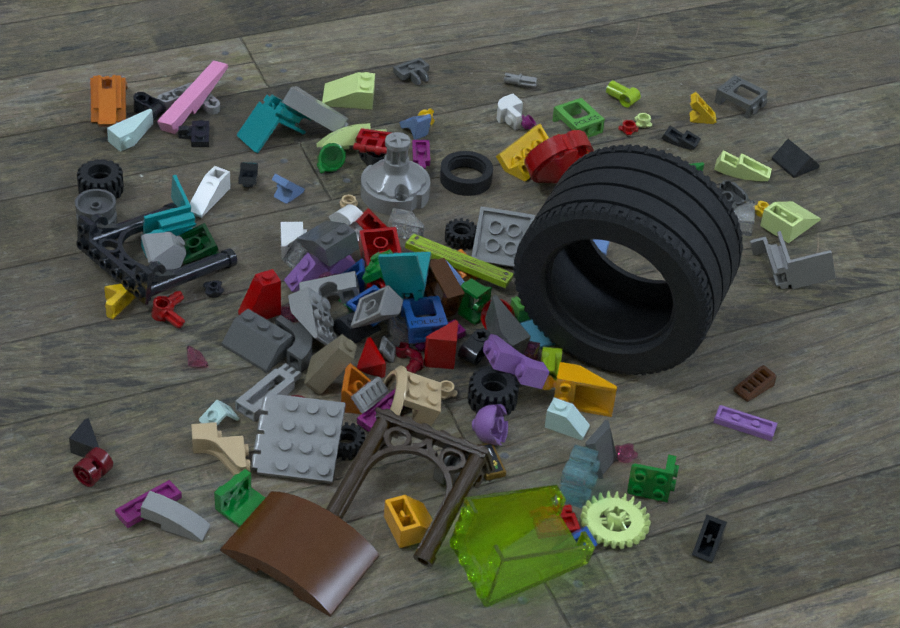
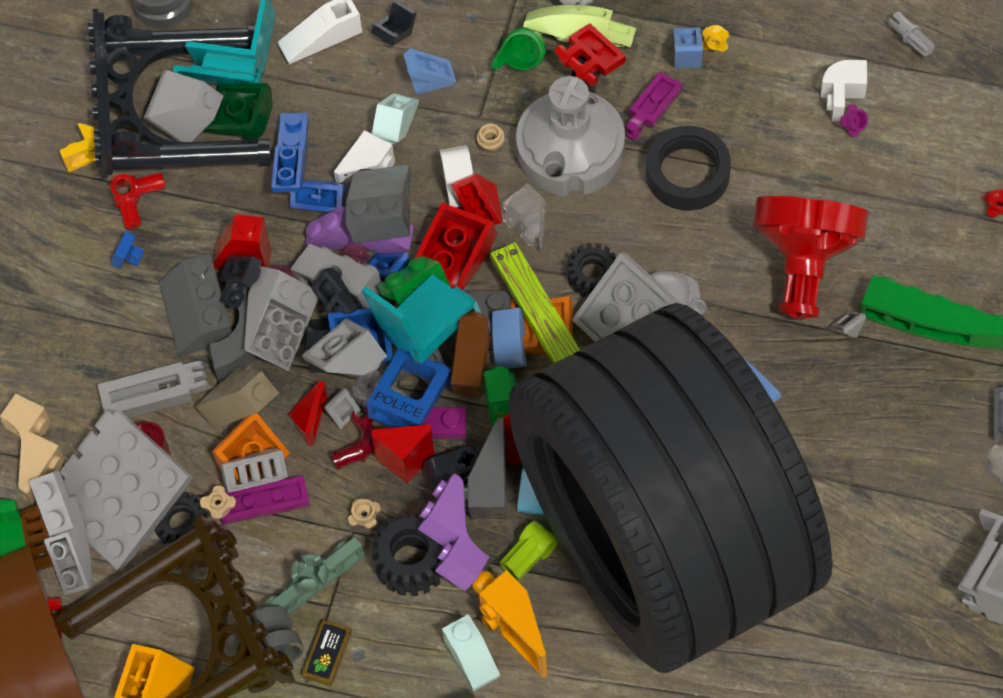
camera: 45 degrees right, 20 degrees up
(189, 334) = (127, 252): none -> blue tile
(195, 357) = (111, 288): clear pink slope -> none
(213, 288) = (215, 196): black plate -> none
(217, 413) = (65, 390): light aqua bracket -> none
(247, 251) = (290, 153): none -> blue slope
(262, 478) = (31, 523): none -> reddish brown slope
(277, 307) = (236, 275): none -> black hinge
(280, 263) = (318, 196): none -> blue slope
(285, 471) = (68, 537): none -> light grey slope
(288, 212) = (394, 117): none -> light aqua slope
(341, 291) = (334, 292): none -> black slope
(364, 418) = (222, 509): none -> tan plate
(416, 393) = (298, 505): tan piece -> none
(453, 418) = (315, 574): none -> sand green plate
(490, 424) = (365, 606): medium lavender cylinder -> none
(513, 156) = (817, 171): yellow slope -> none
(532, 350) = (516, 519): clear pink slope -> none
(590, 124) = (932, 170): bright green window -> none

